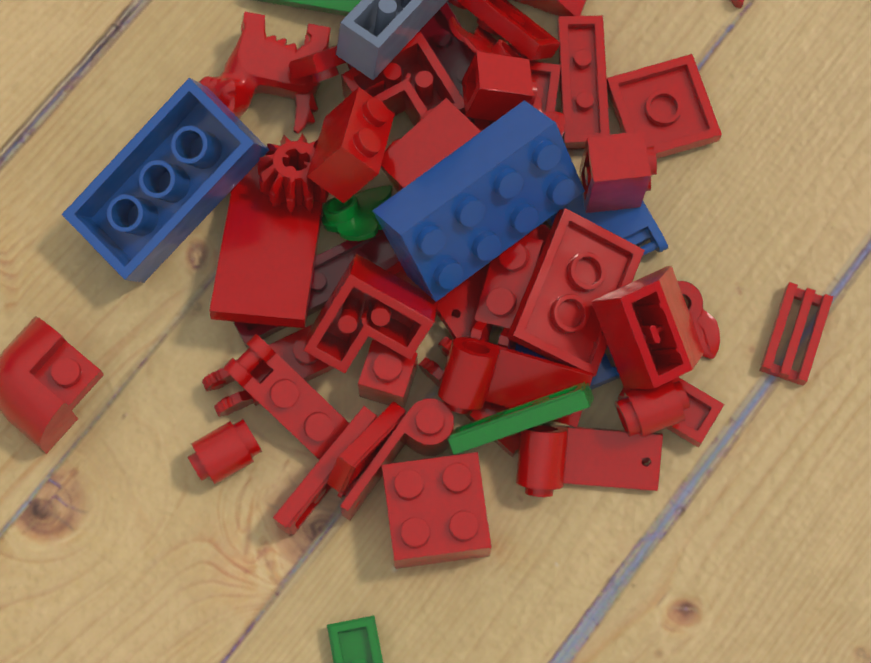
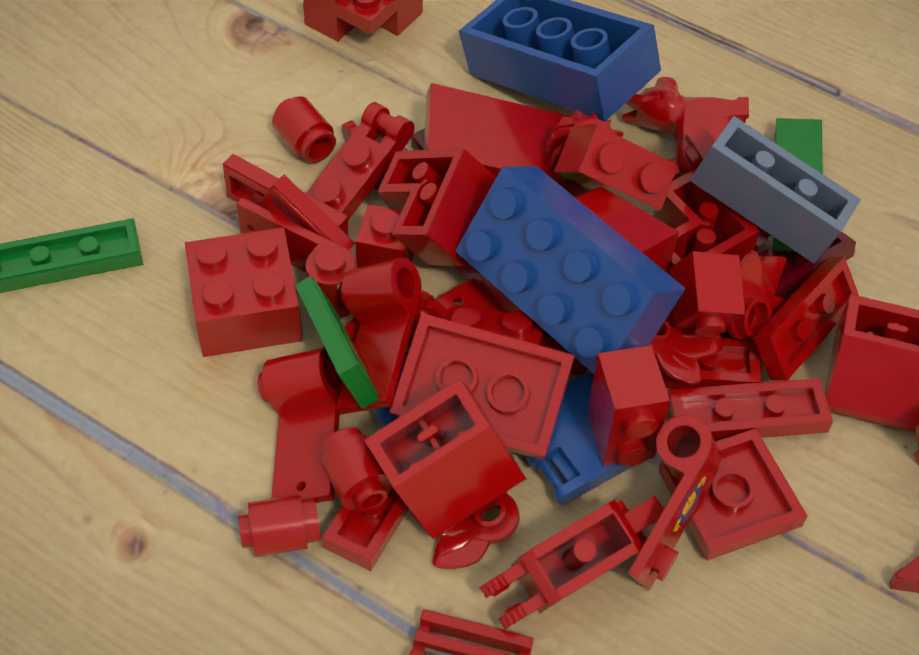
camera: 85 degrees right, 20 degrees down
(668, 130) = (693, 460): none -> red door
(685, 479) = (279, 525): none -> red brick
(731, 239) = (575, 557): none -> red hinge

